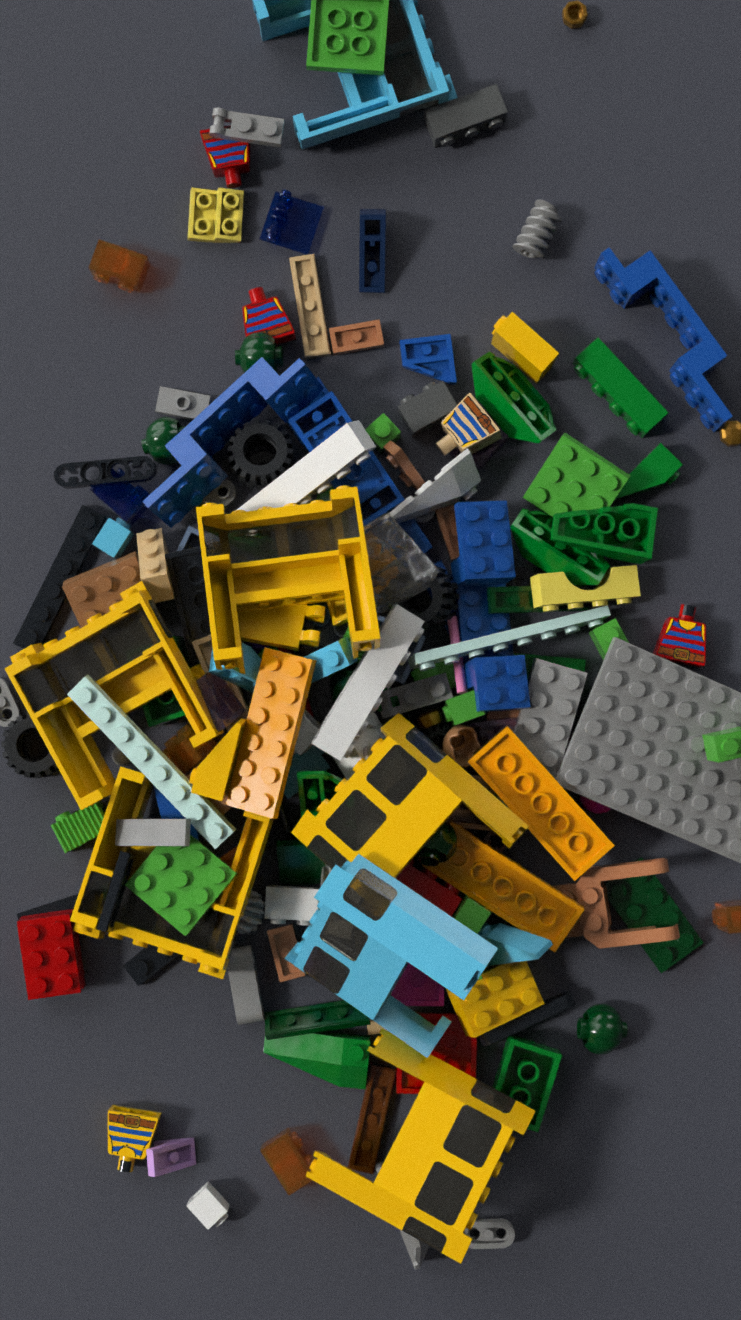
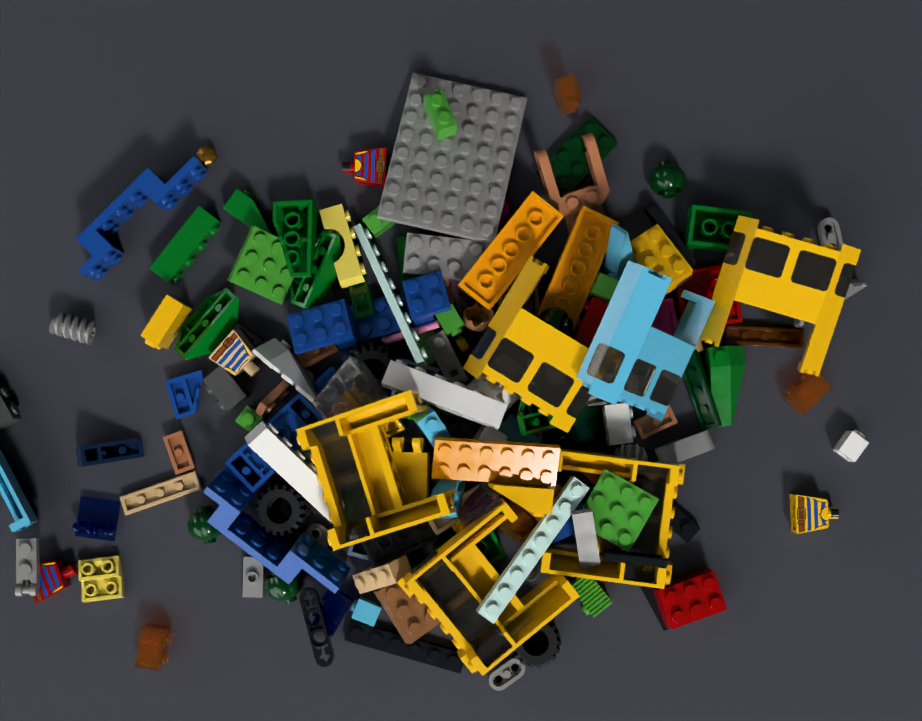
camera: 105 degrees left, 0 degrees up
(170, 1156) = (820, 480): lavender slope -> none
(267, 317) = (174, 524): torso -> none

